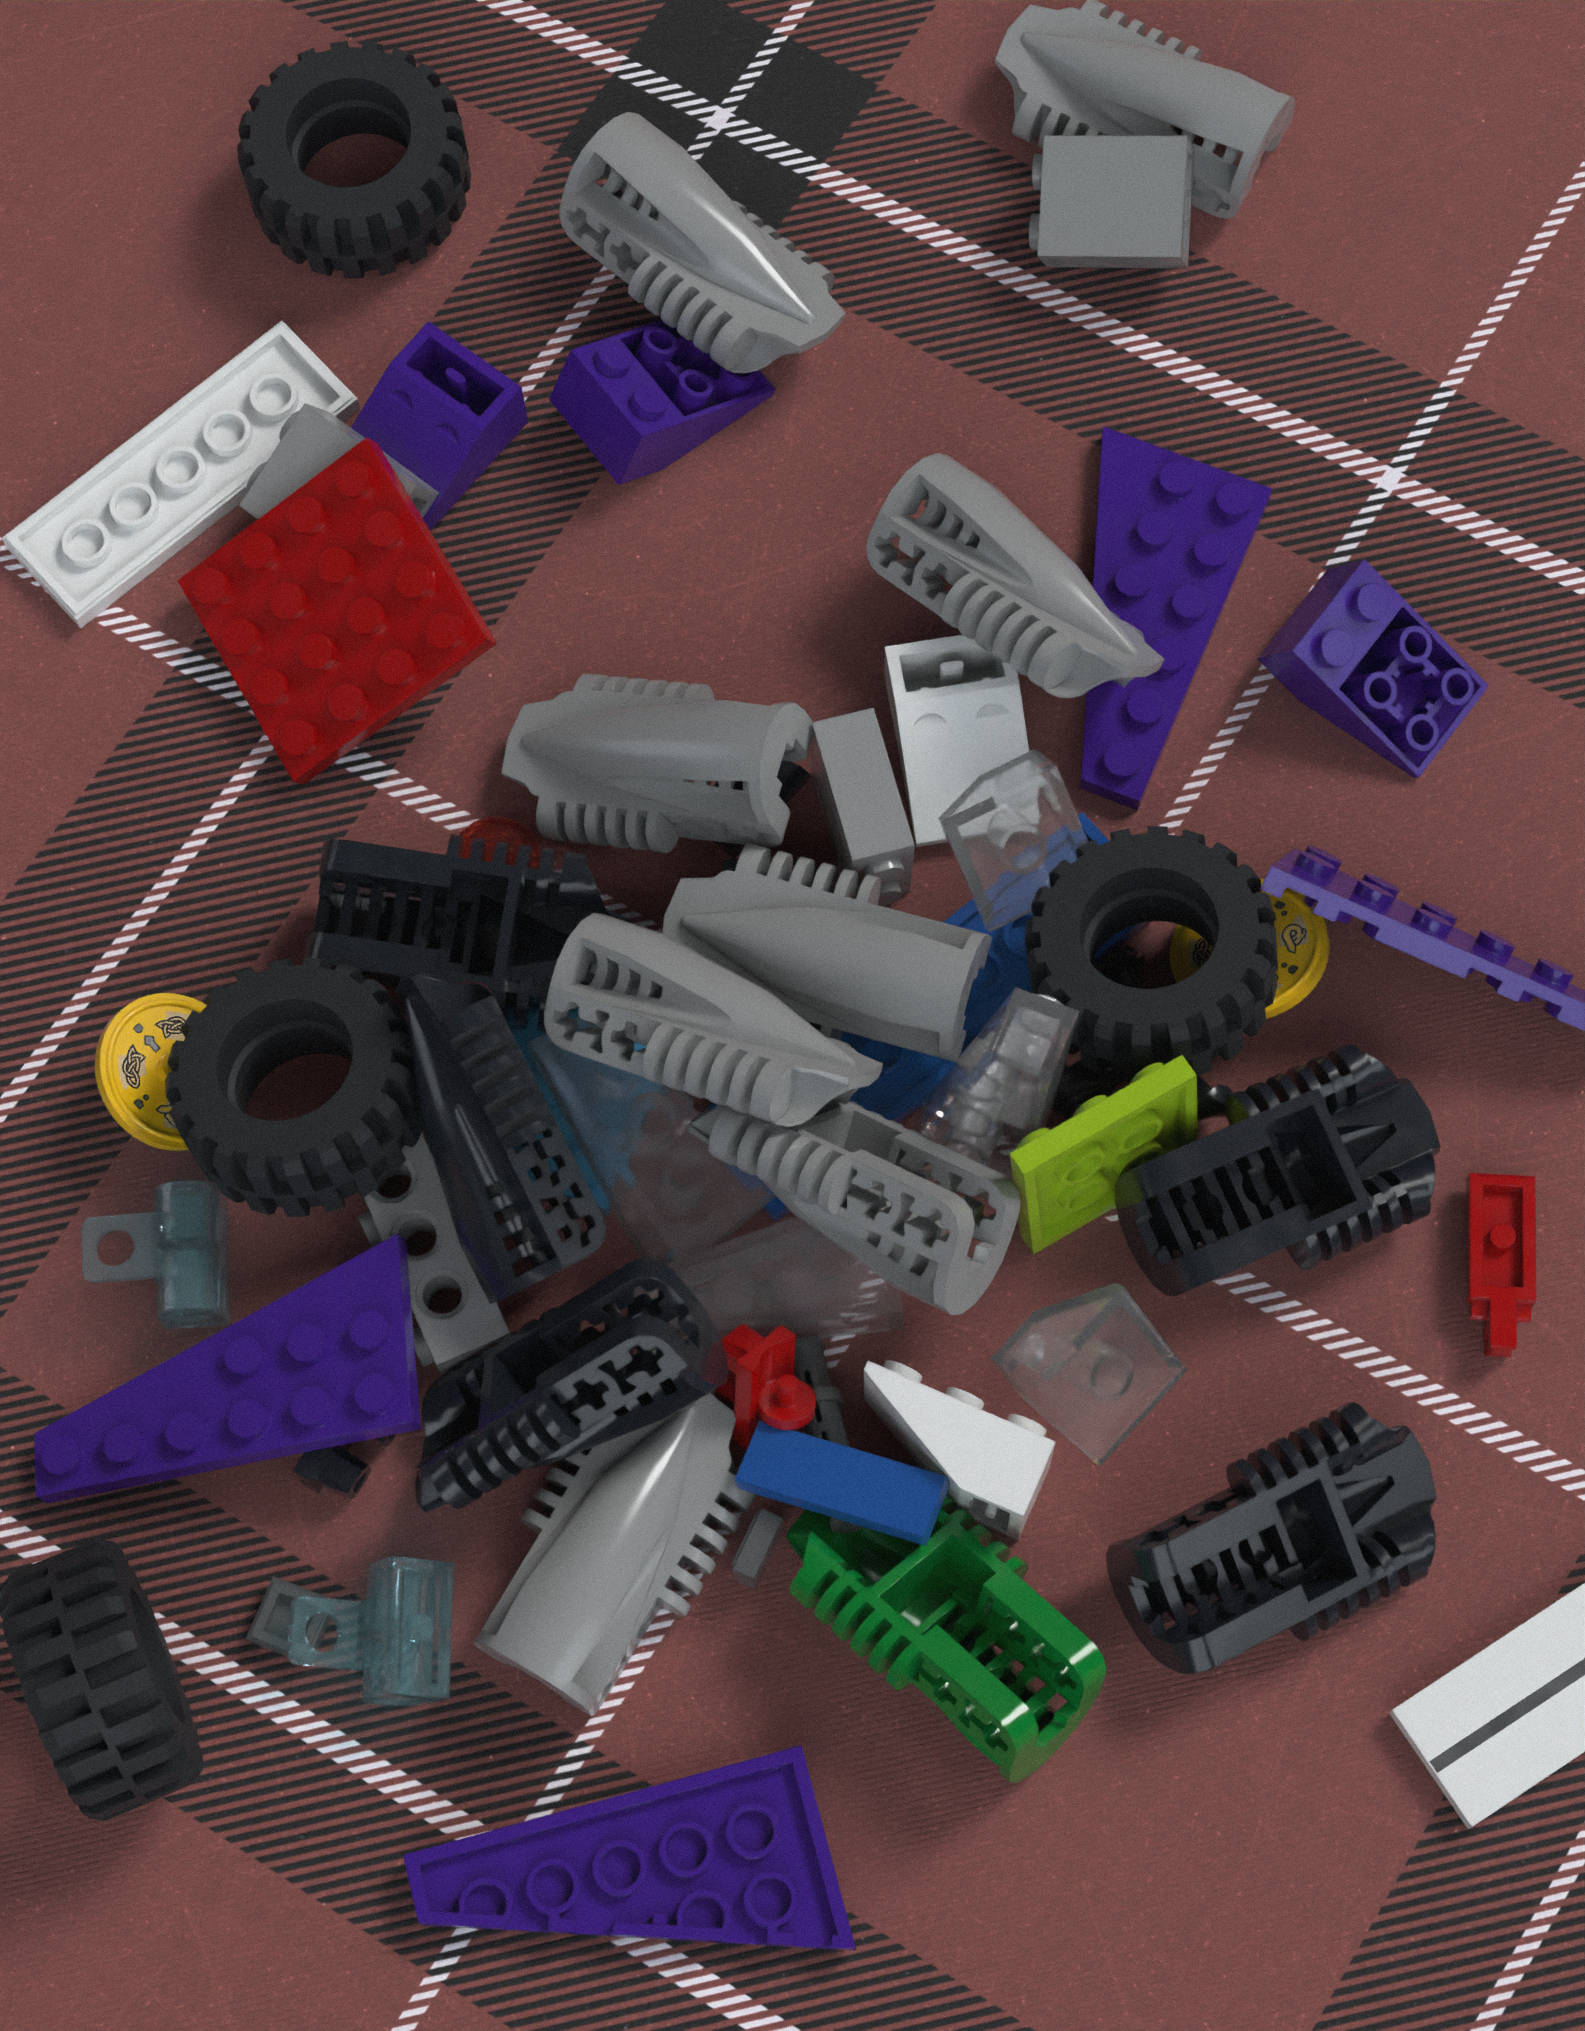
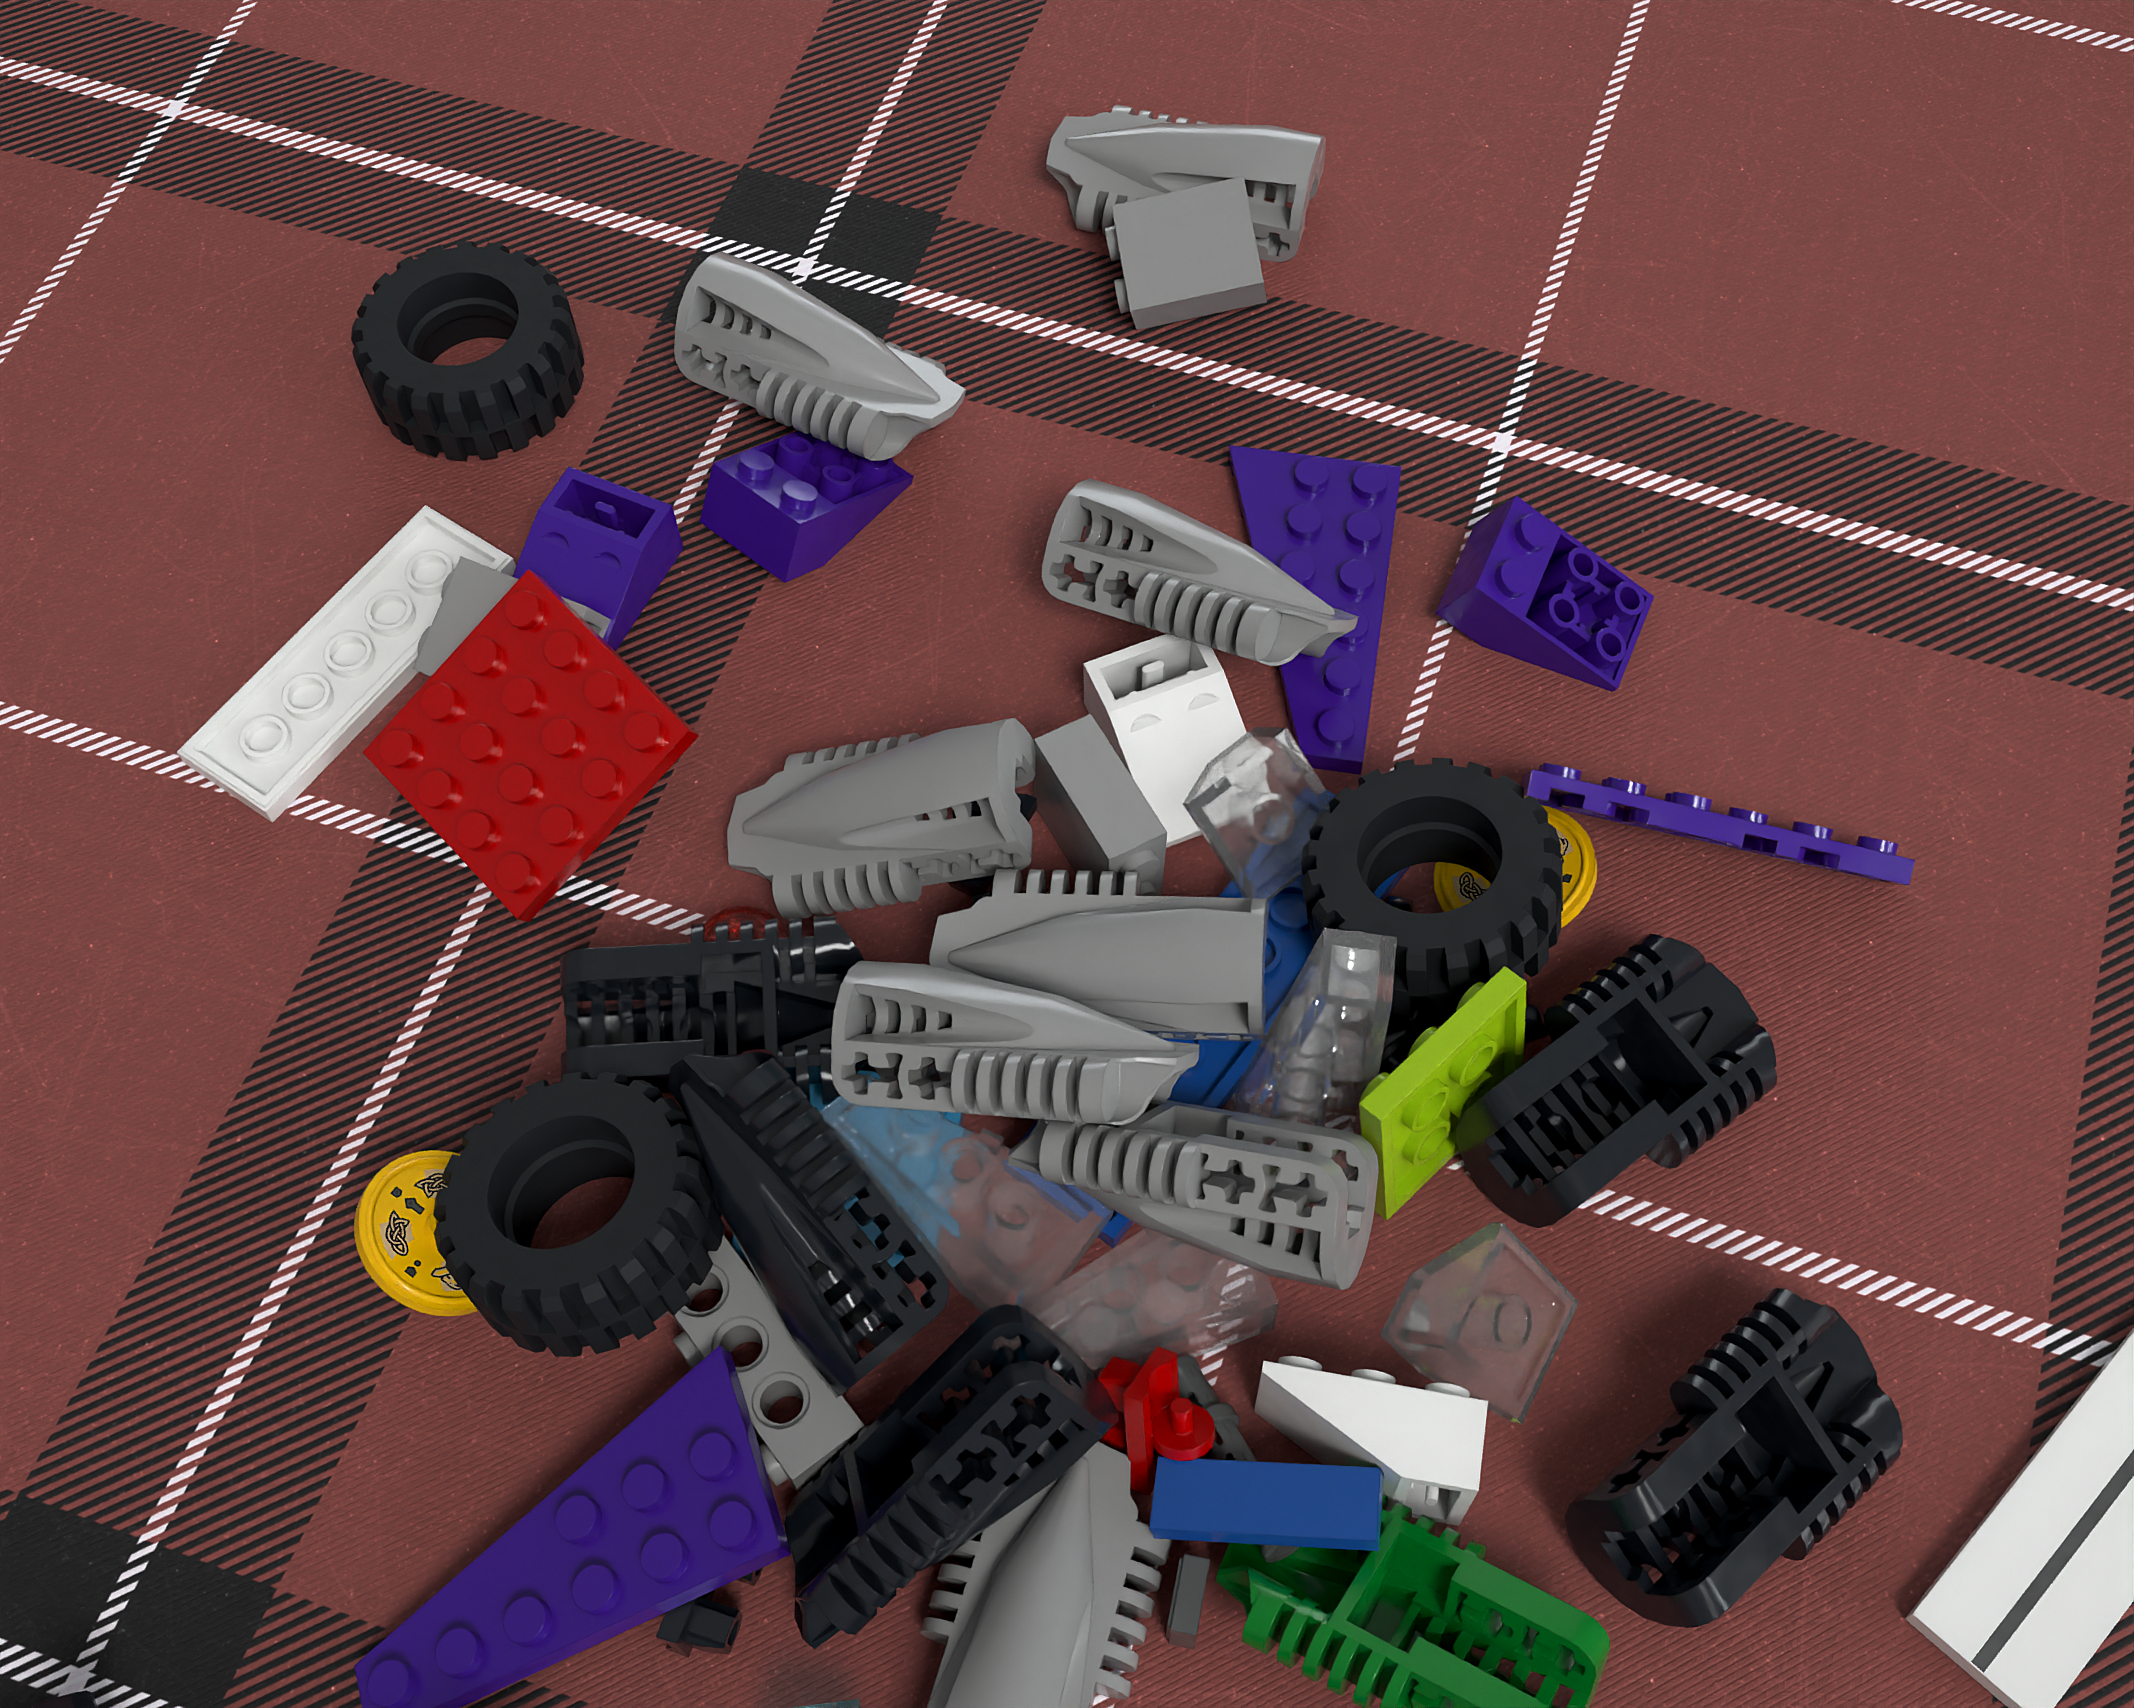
camera: 15 degrees left, 10 degrees down
(178, 1247) = (483, 1418): clear light blue piece -> none
(1500, 1256) = (1856, 1116): red hinge -> none

